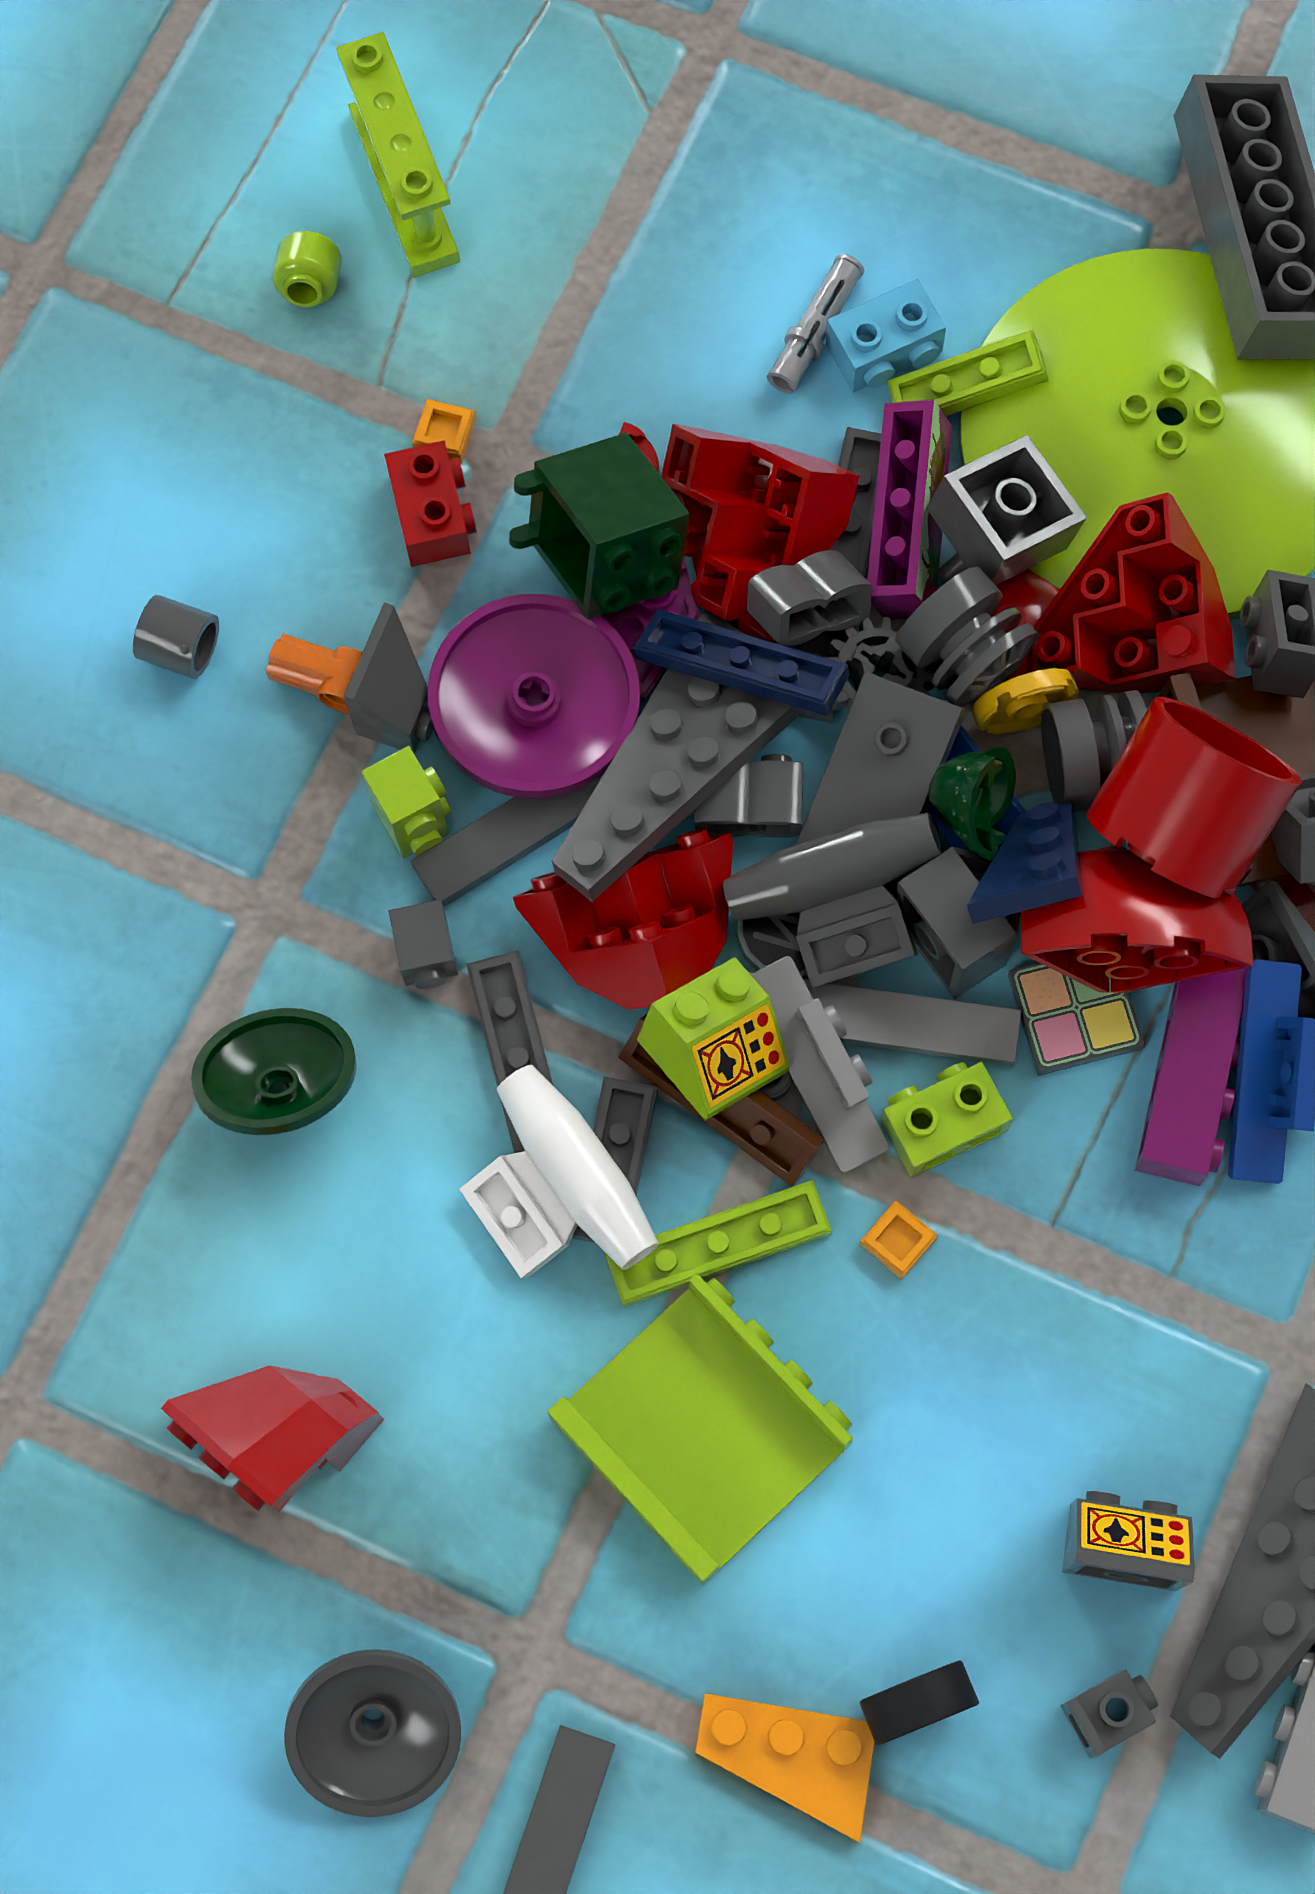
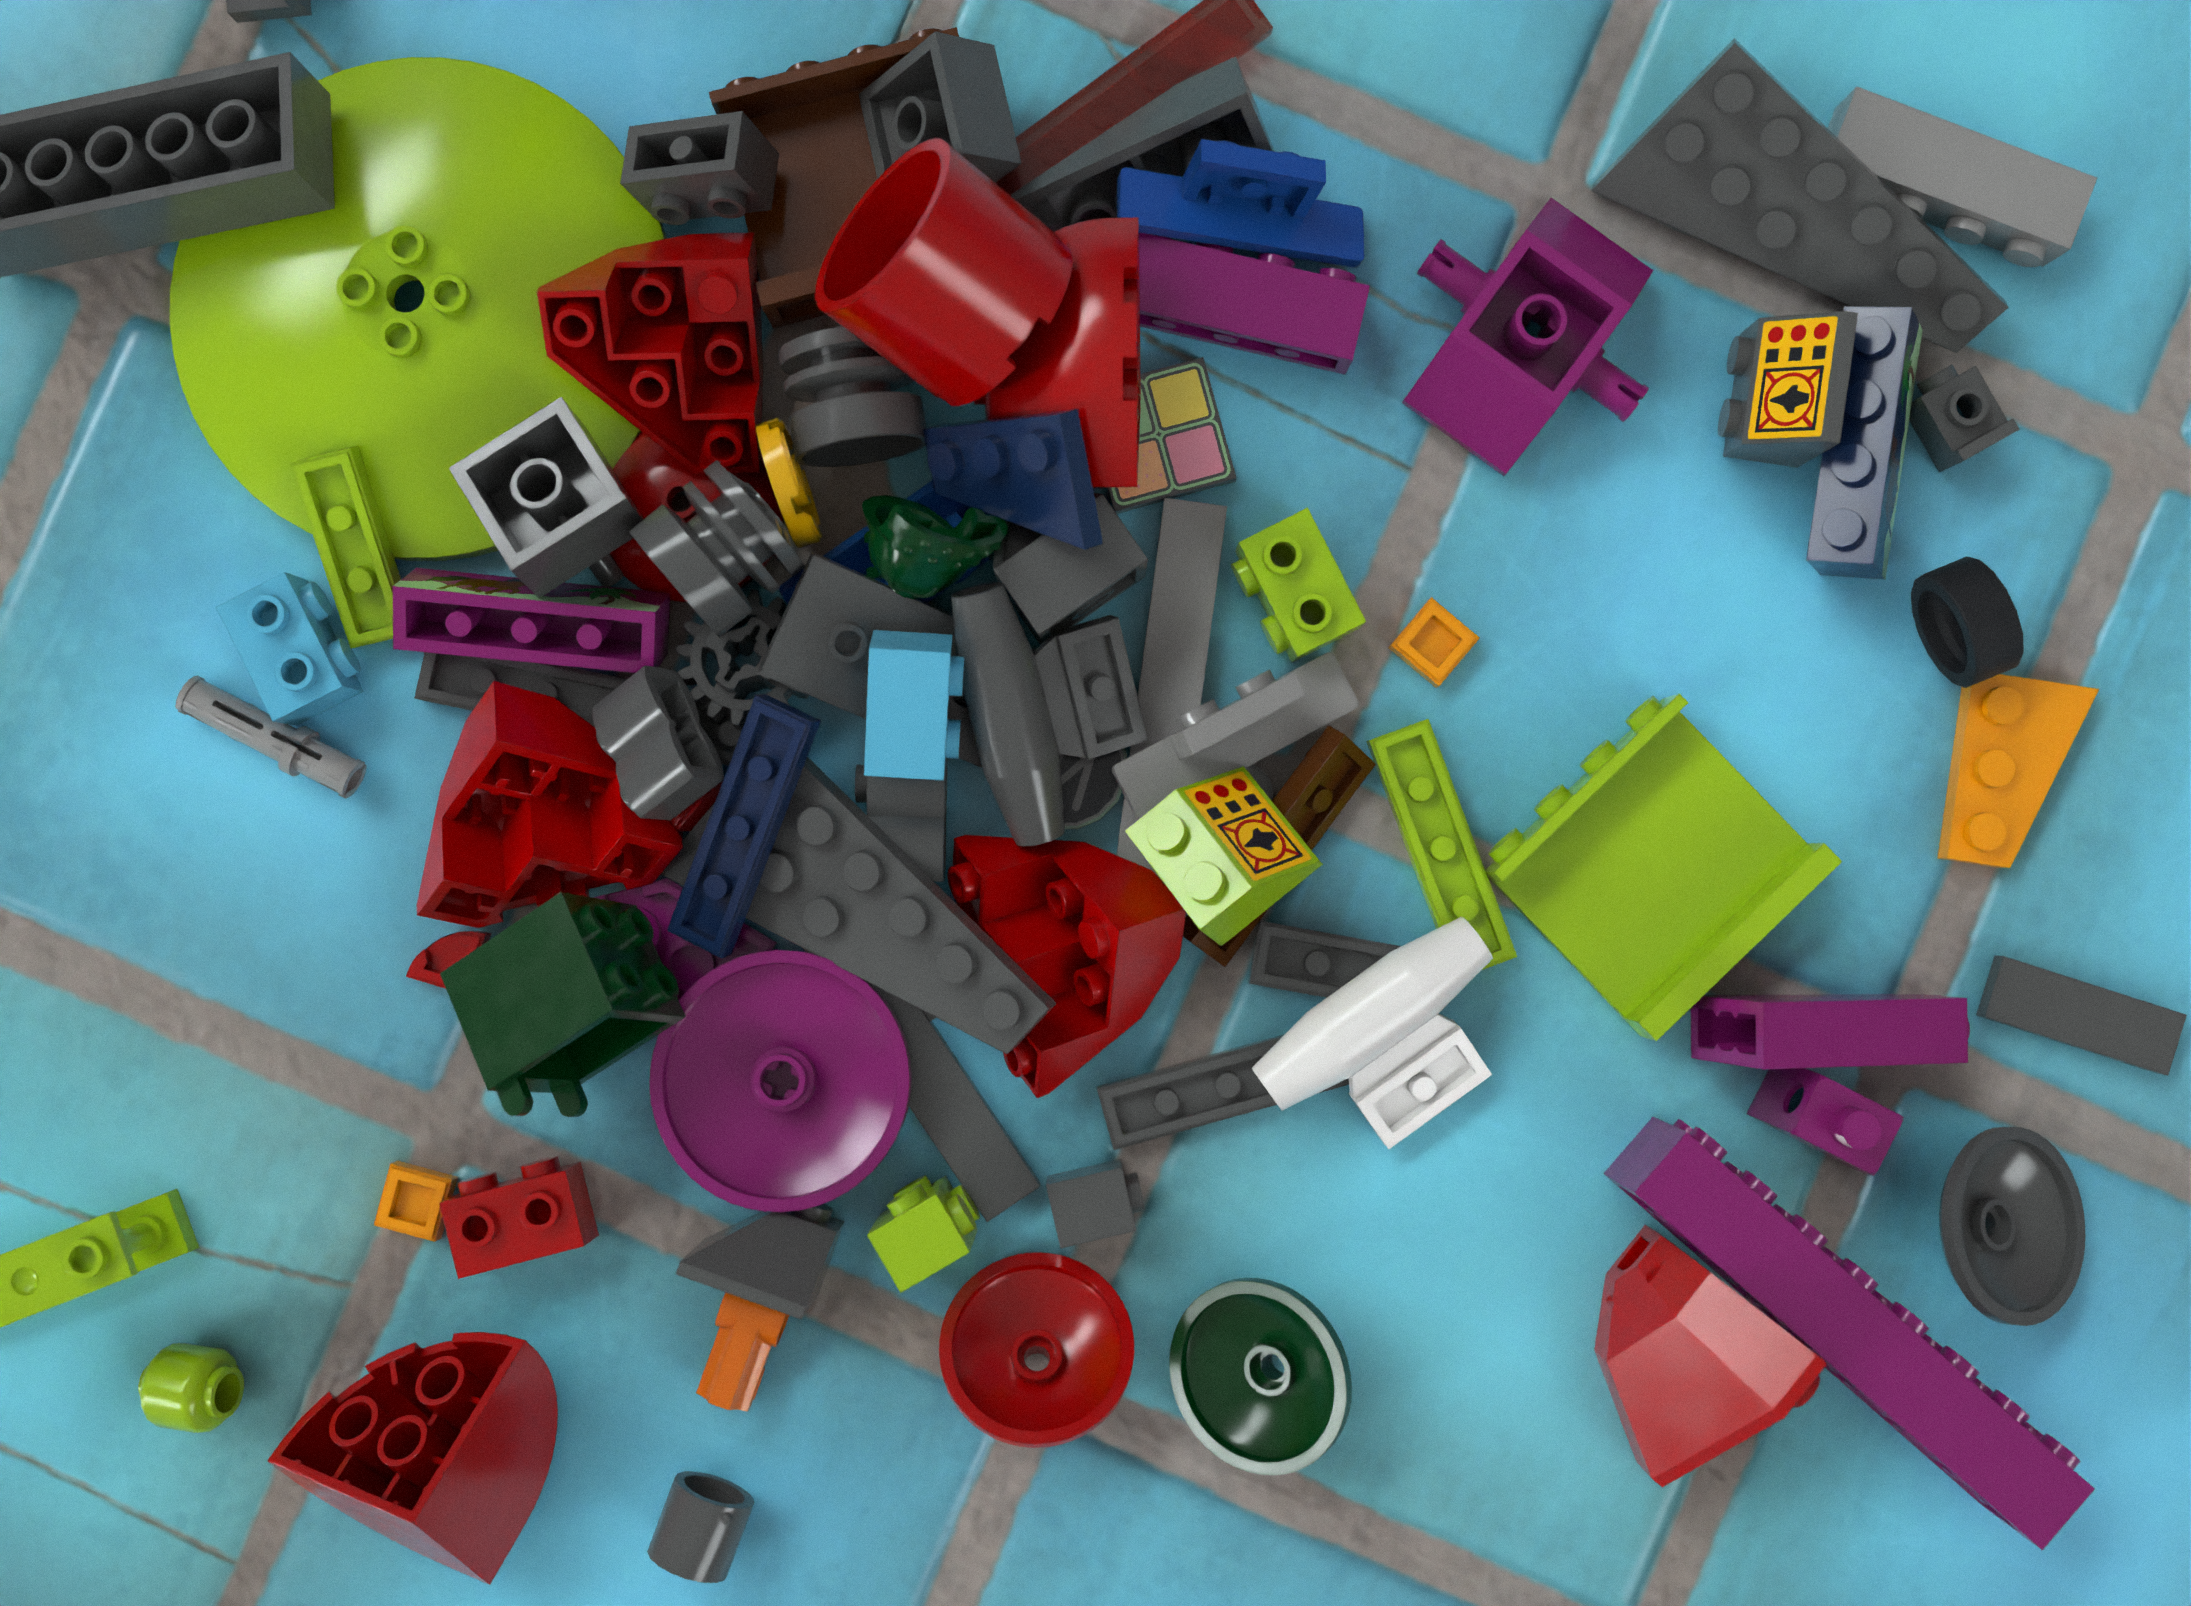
camera: 90 degrees left, 15 degrees up
(252, 440) = (435, 1447): none -> red brick
(287, 1575) = (1863, 1337): none -> magenta brick
(328, 875) = (1027, 1309): none -> red dish
(472, 1571) = (1827, 1118): none -> magenta torso
(552, 1579) = (1830, 1030): none -> magenta slope
(839, 783) = (910, 705): none -> medium azure brick
(1082, 1617) = (1864, 470): none -> brick
(1230, 1341) = (1495, 381): none -> magenta slope

